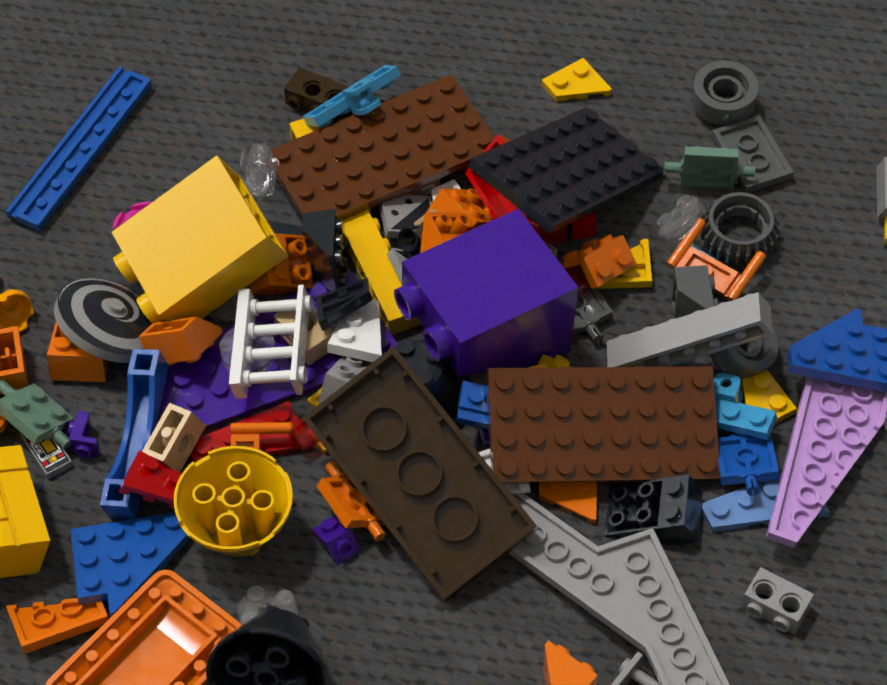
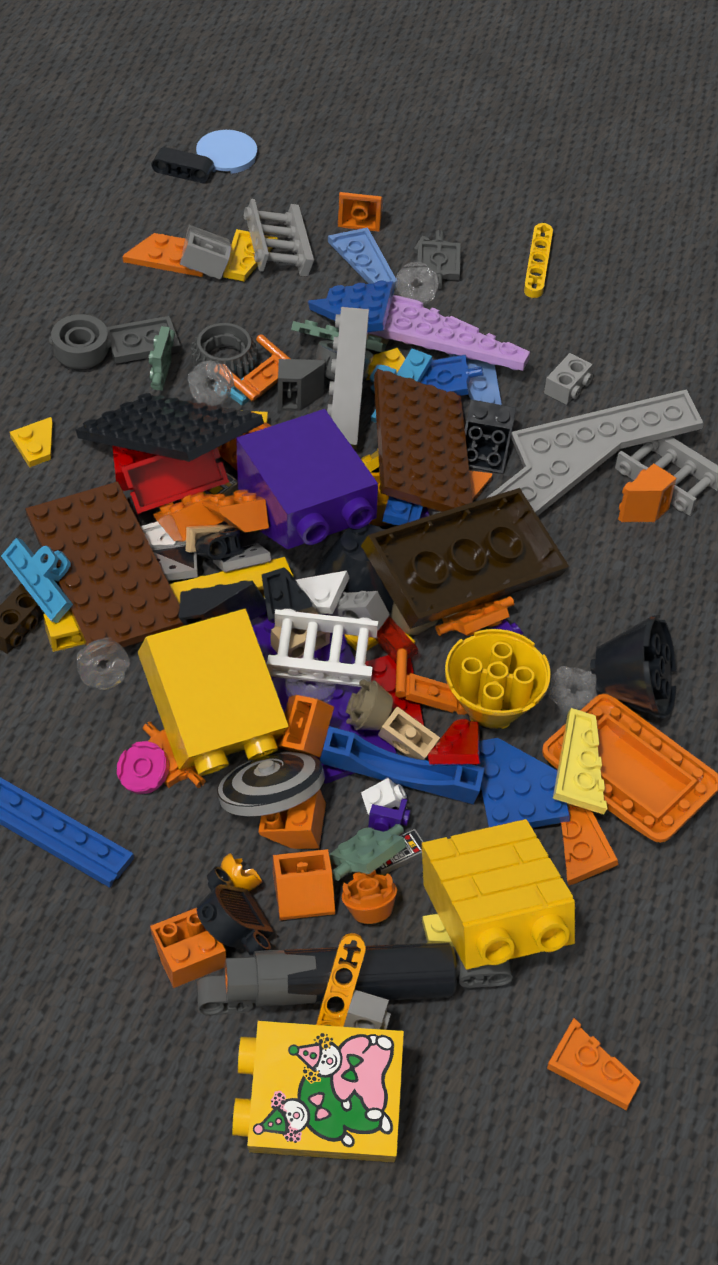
camera: 90 degrees left, 5 degrees down
(109, 432) = (384, 794): none -> white bracket
(132, 600) = (579, 764): none -> light yellow wing
(203, 395) = (369, 707): none -> dark tan cone
(798, 321) = (329, 332): none -> sand green wing

